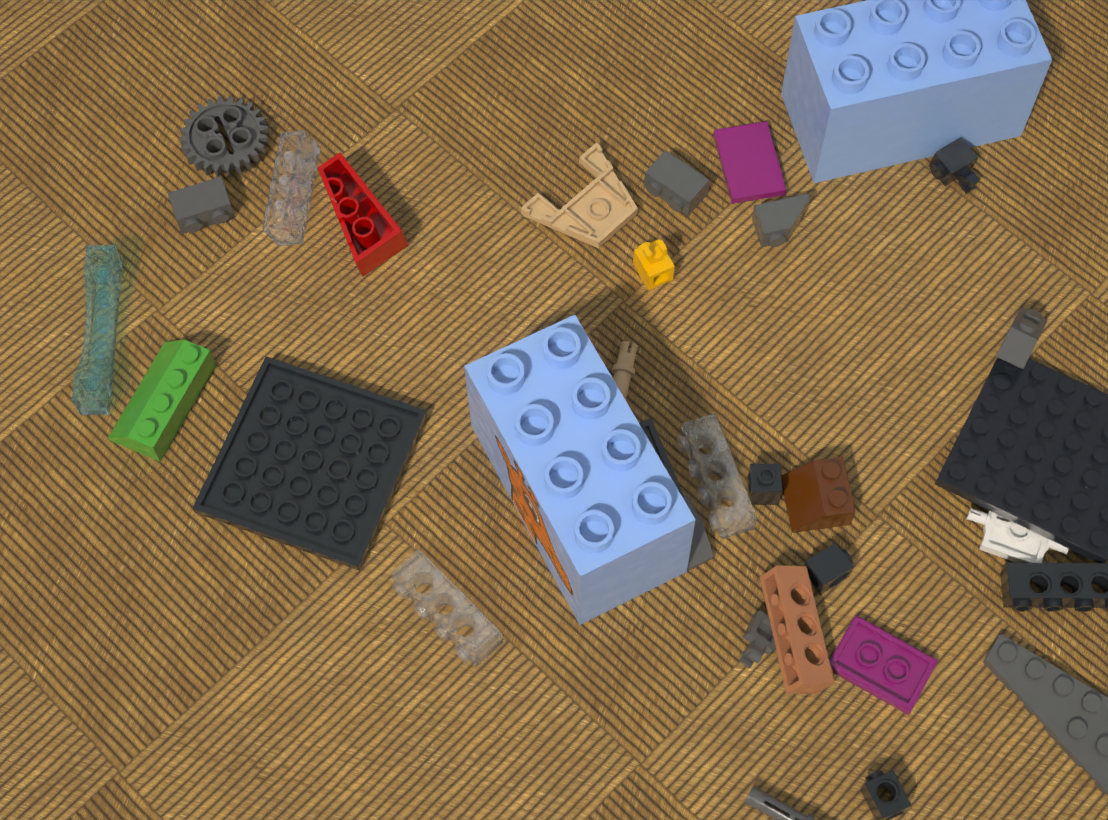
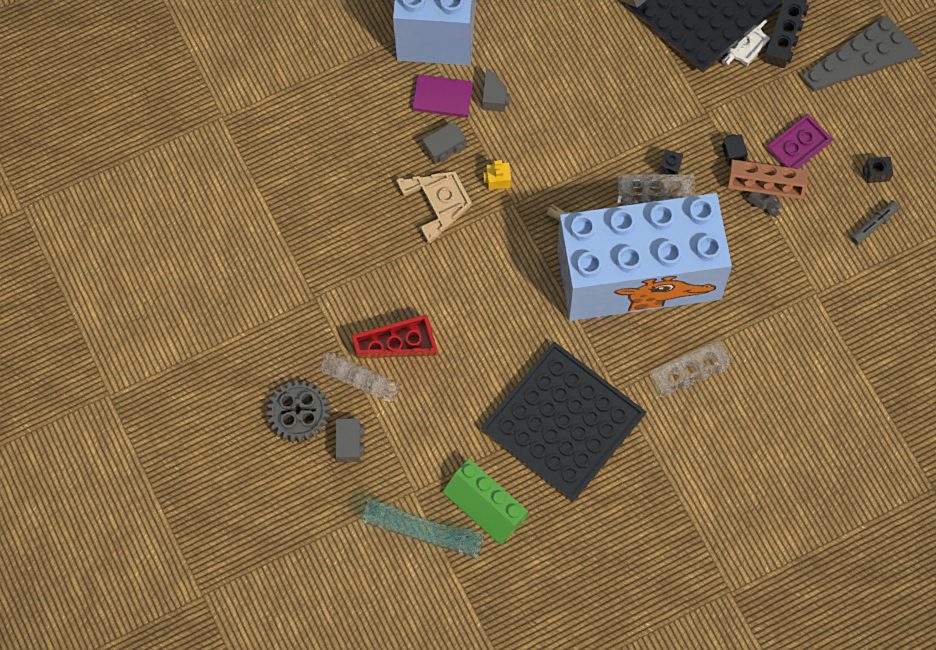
camera: 70 degrees left, 5 degrees up
(818, 495) = (688, 137): reddish brown slope -> none

